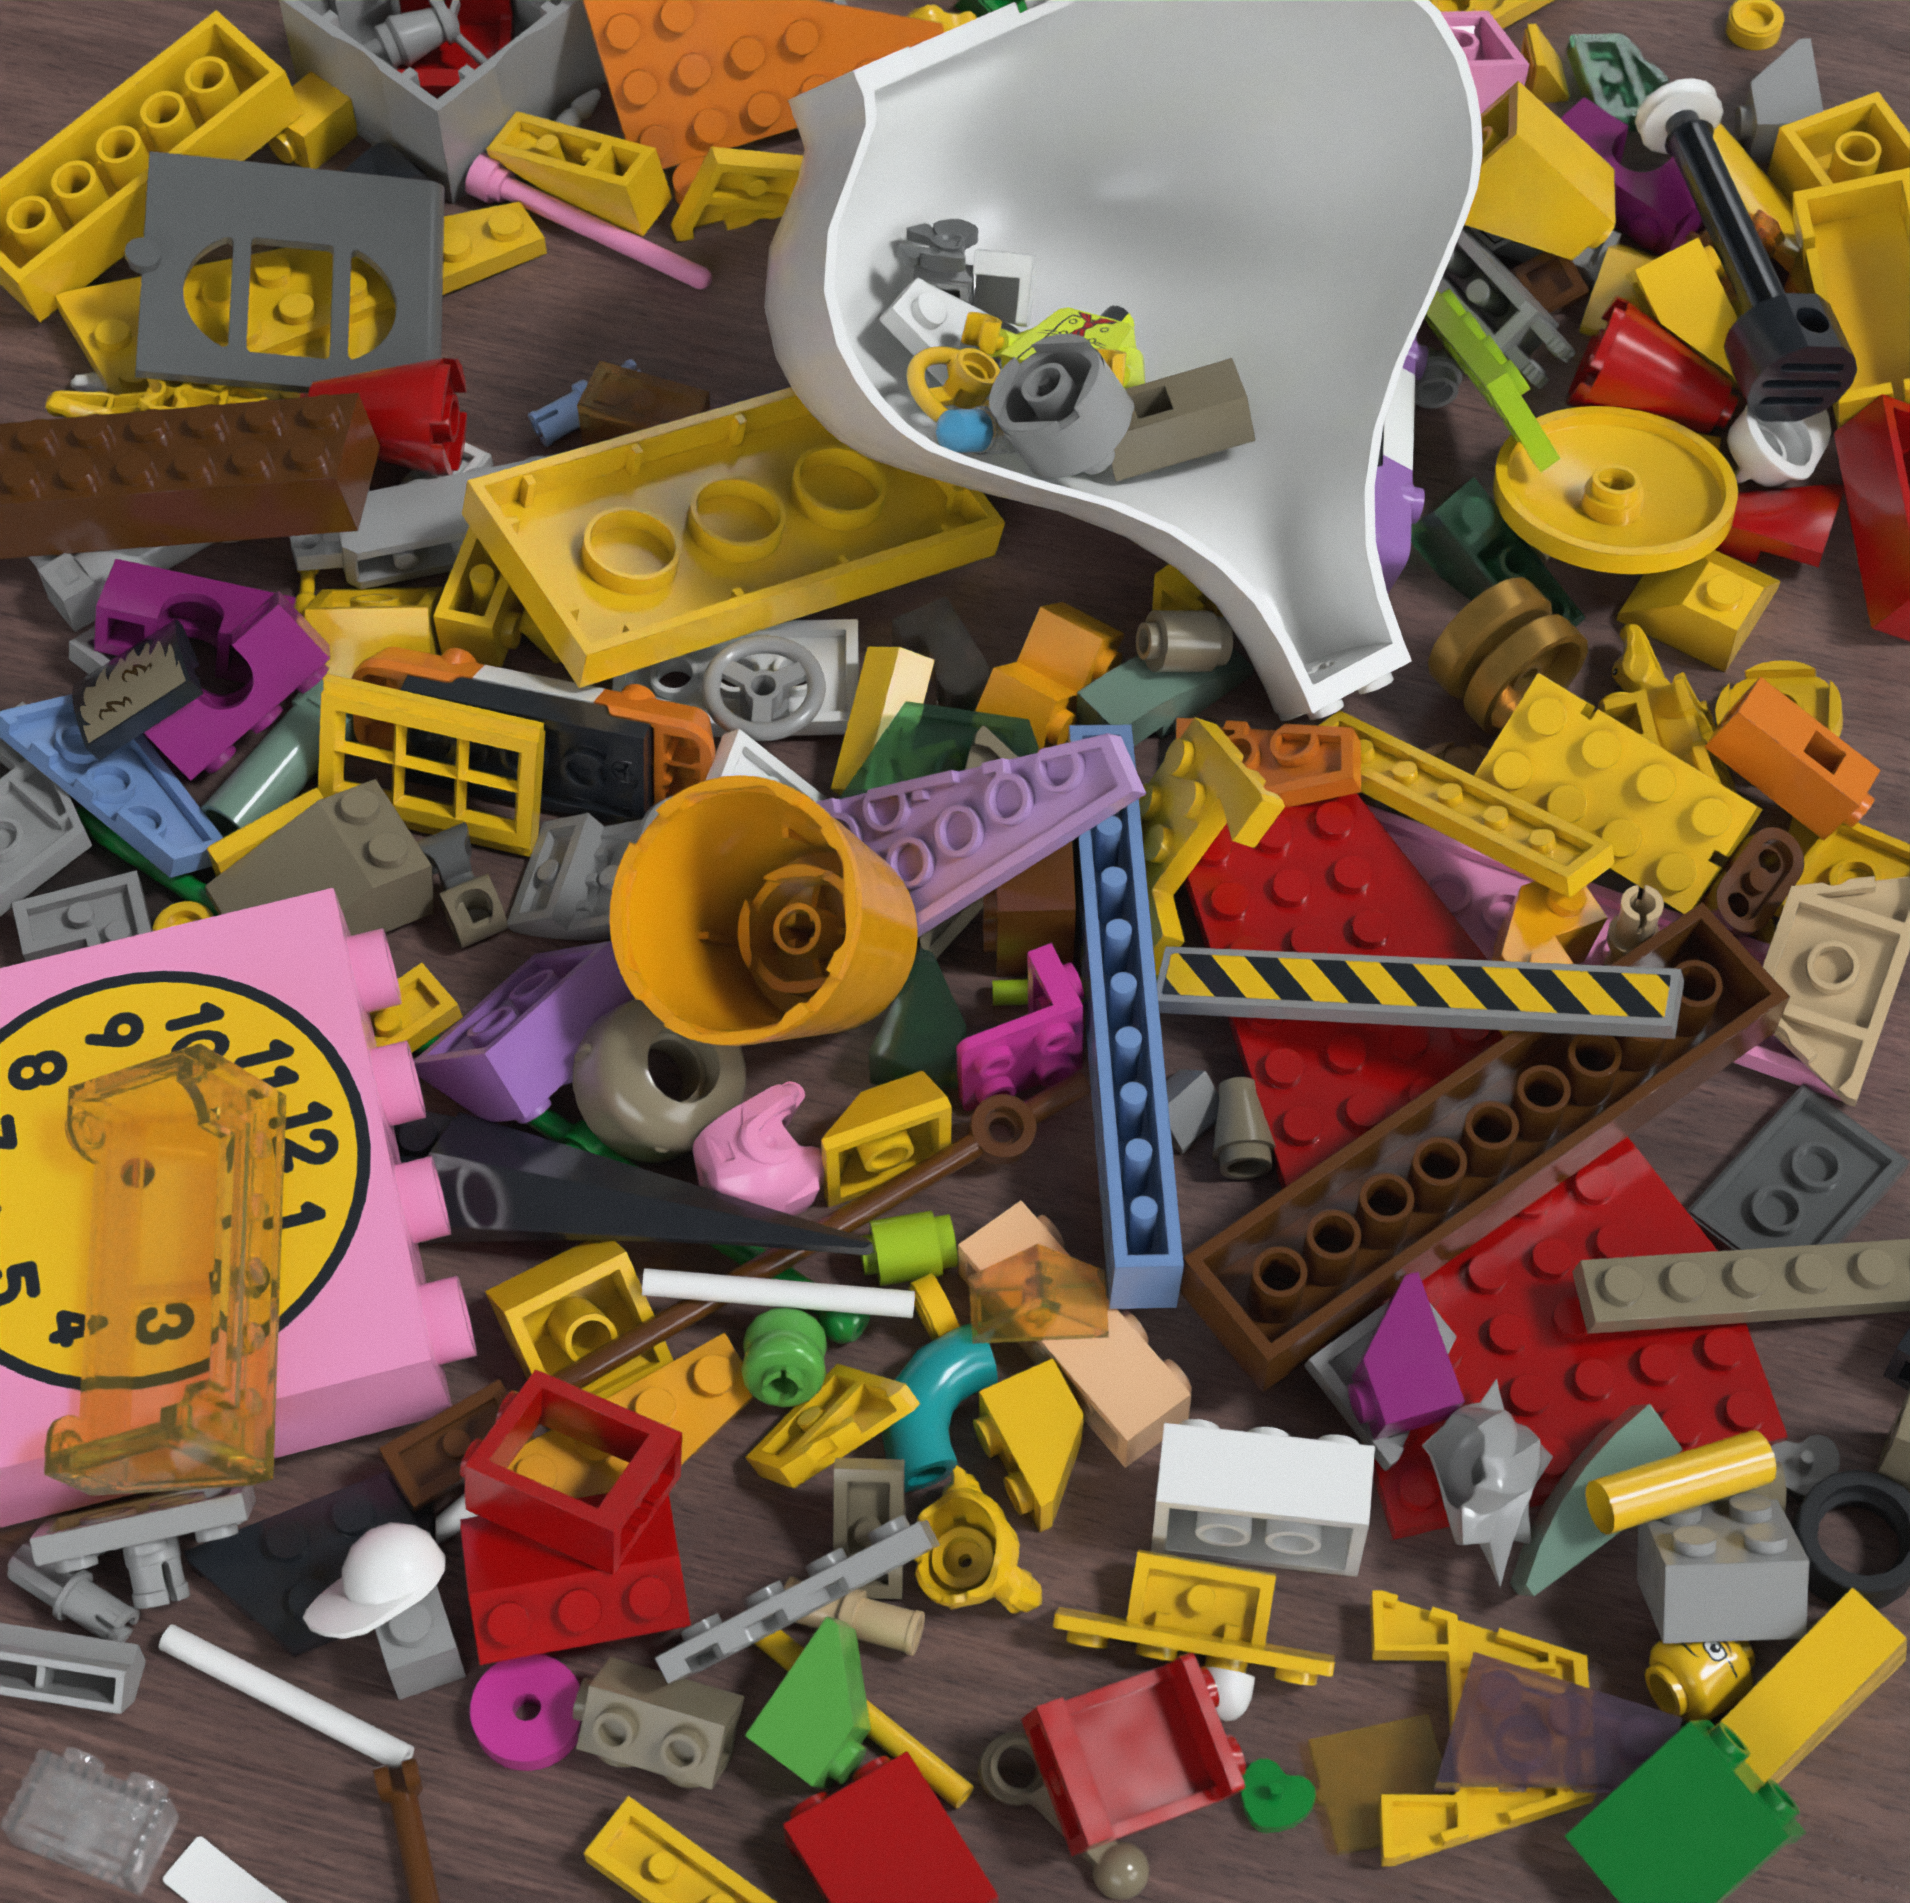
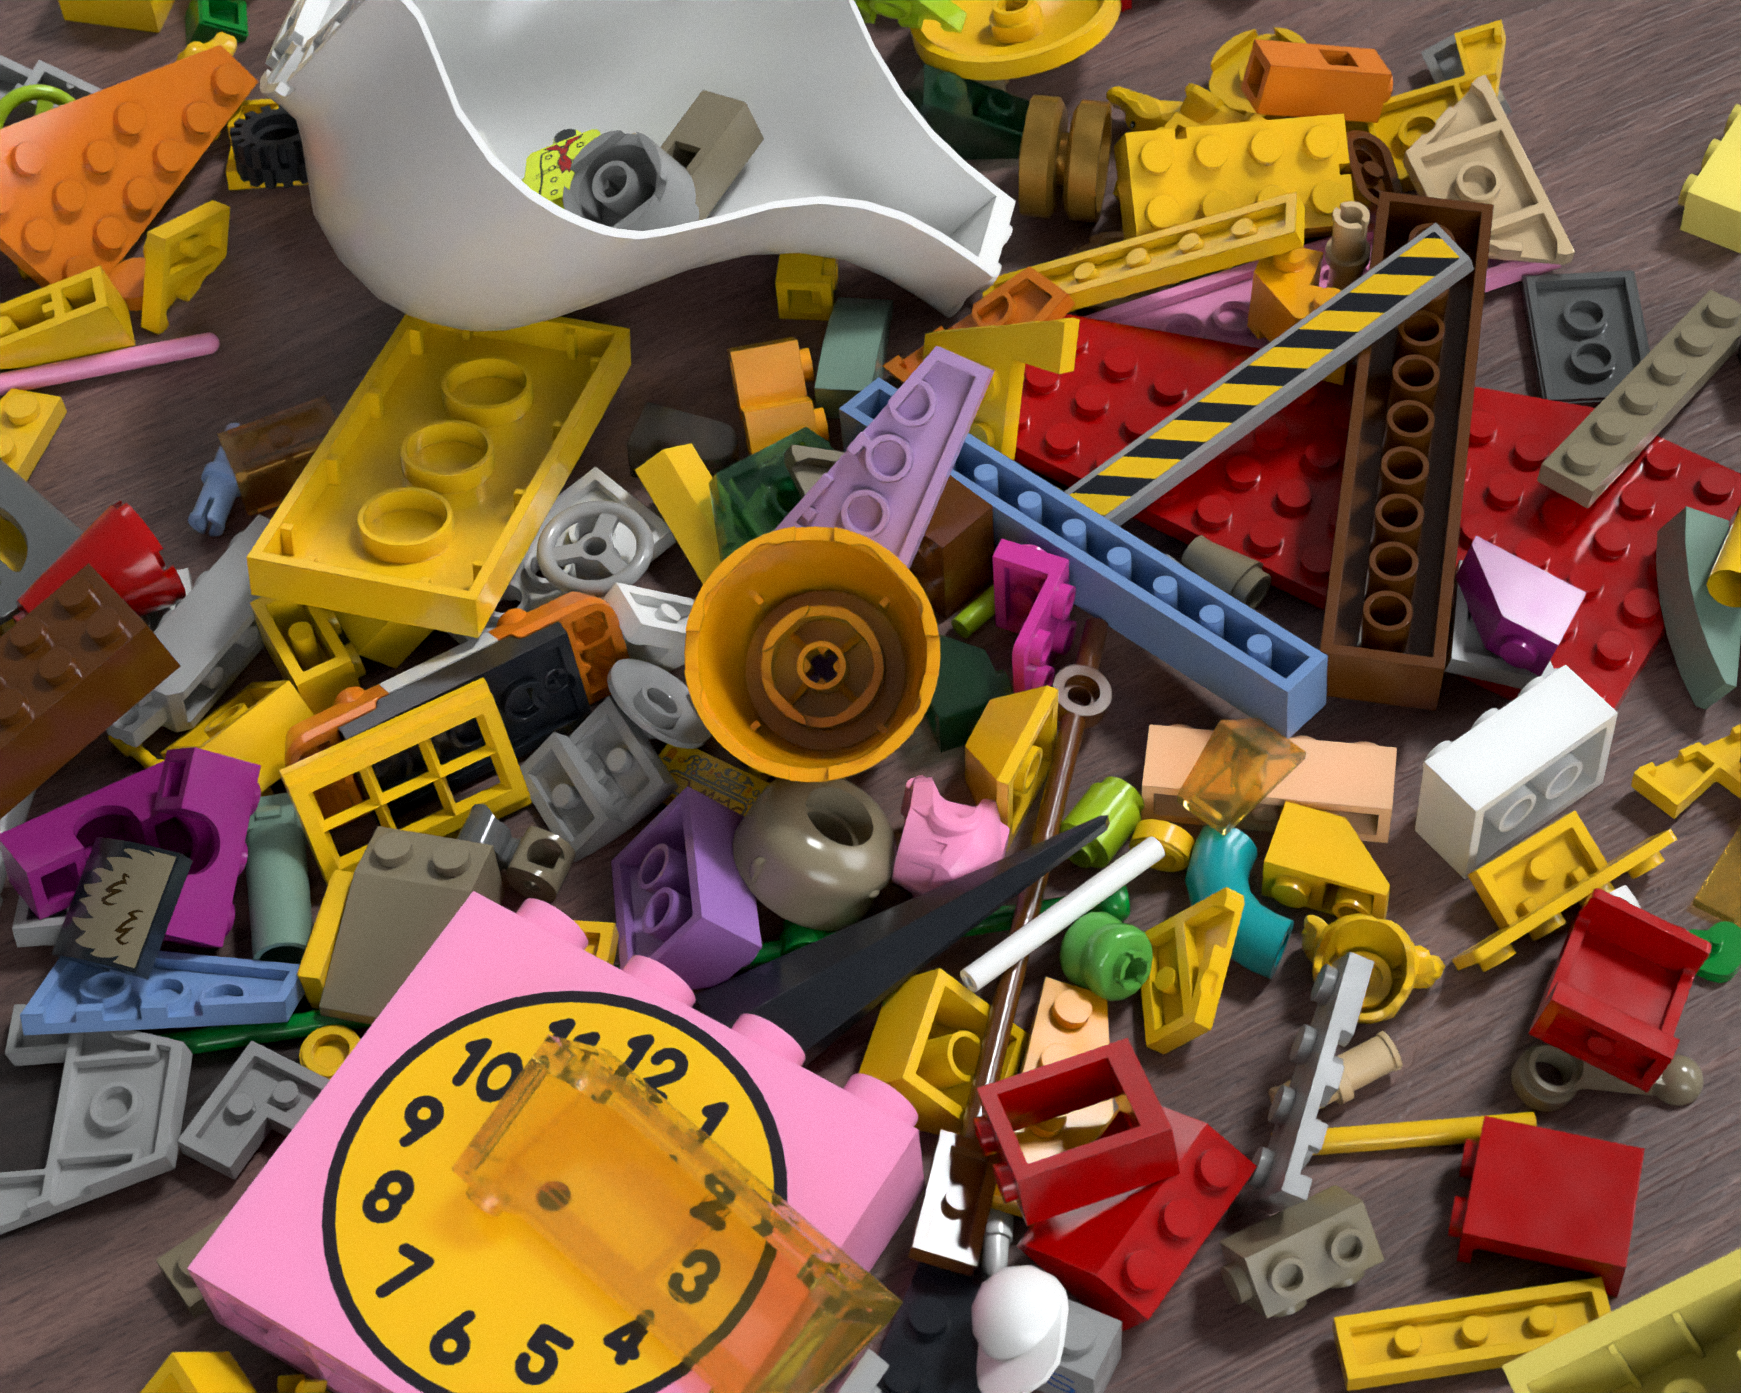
camera: 40 degrees left, 5 degrees down
(533, 1742) = (1202, 1363): dark pink piece -> none
(819, 1710) = (1395, 1147): bright green slope -> none
(865, 1498) = (1277, 1001): dark tan slope -> none
(1184, 641) = (851, 301): dark tan brick -> none
(1487, 1476) = (1635, 637): light grey hair -> none
(1701, 607) = (1140, 53): yellow slope -> none

